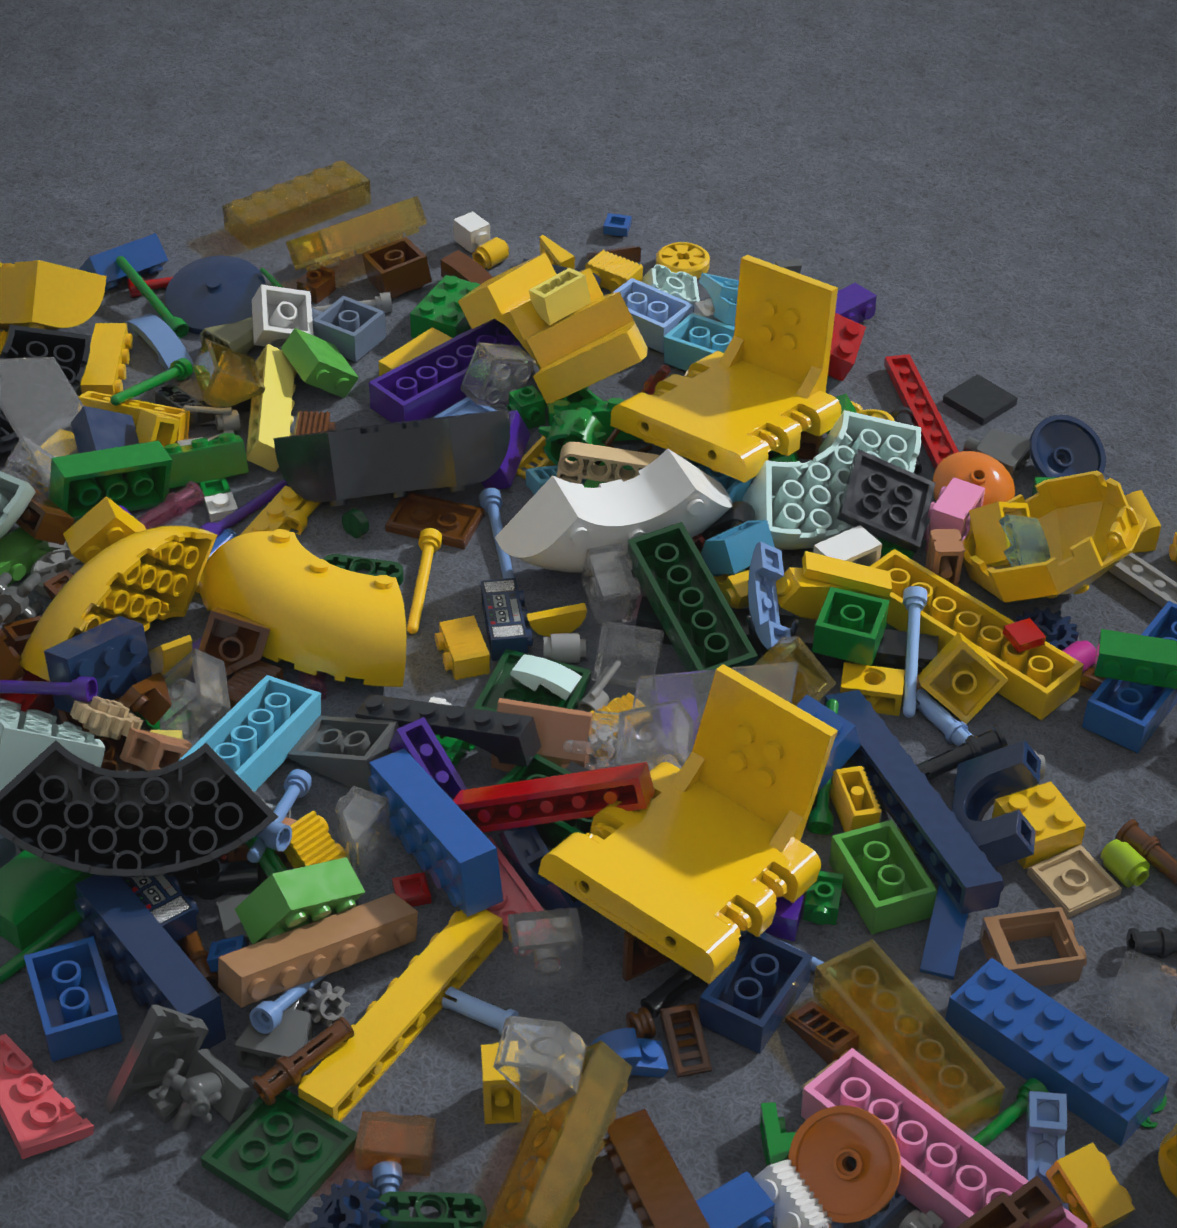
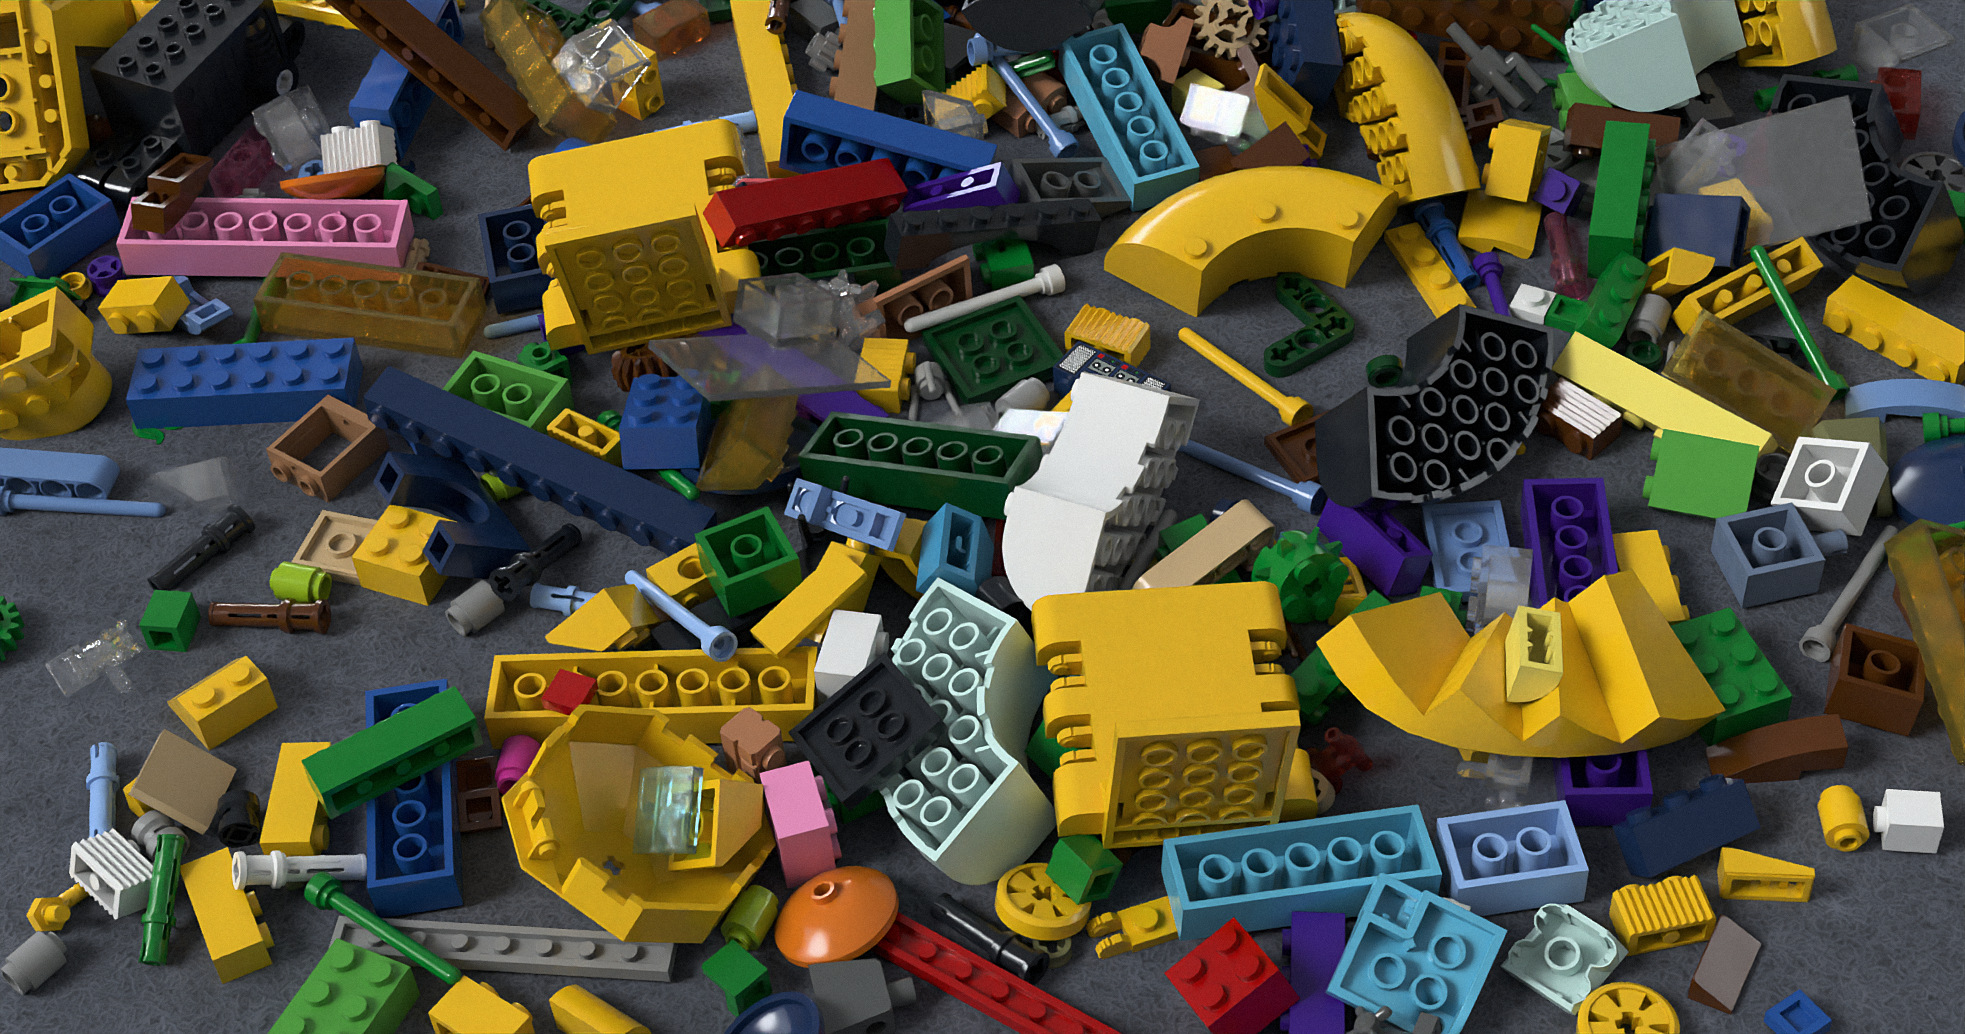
camera: 140 degrees right, 5 degrees up
(537, 670) = (989, 339): light aqua slope -> none

